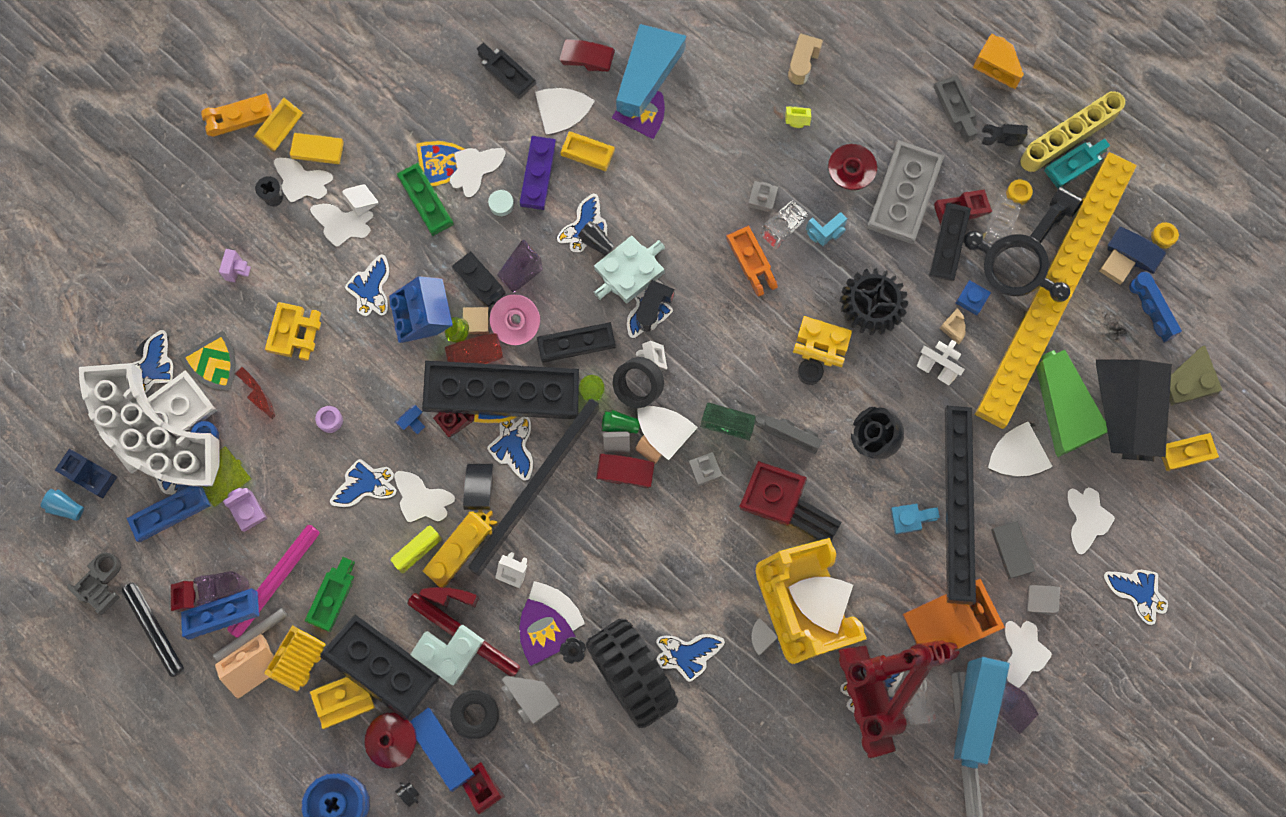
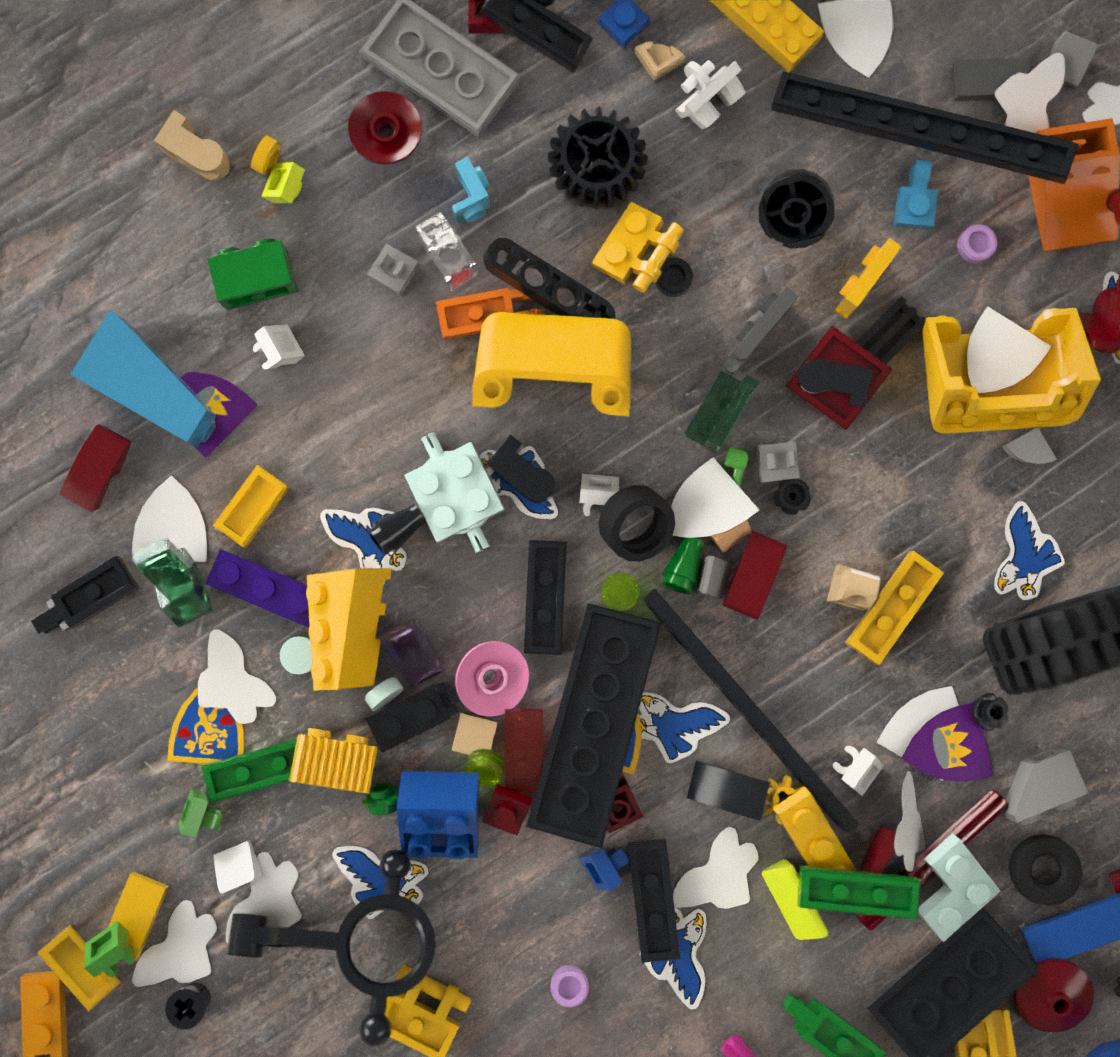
camera: 75 degrees left, 10 degrees up
(294, 134) = (107, 949): none -> bright green tile
(321, 217) = (251, 934): none -> black piece
(387, 168) = (198, 813): none -> bright green tile
(395, 456) = (653, 900): none -> black plate
(421, 270) = (381, 799): none -> green plate
(430, 581) = (858, 892): none -> green tile
(433, 349) = (507, 809): none -> dark red plate
(438, 236) = (333, 762): none -> yellow brick
(481, 612) = (909, 833): none -> white sticker
(489, 257) = (383, 693): none -> light aqua tile
(524, 220) = (344, 626): none -> yellow wedge
(530, 118) = (176, 579): none -> clear green brick
(627, 568) = (894, 607): none -> yellow plate
(633, 534) = (853, 588): none -> tan leg
(680, 478) = (802, 498): none -> black plate
(693, 139) = (278, 345): none -> white tile
(699, 441) = (738, 460): none -> bright green hand
(734, 113) = (252, 273): none -> green brick
(737, 304) = (554, 351): none -> yellow windscreen
(770, 486) = (836, 377): none -> black leg
(775, 290) = (552, 281): none -> black beam
(812, 101) = (266, 155): none -> yellow tile
(836, 489) = (857, 288): none -> yellow plate
(894, 567) = (977, 244): none -> lavender tile
(1007, 575) = (1027, 95): none -> white sticker

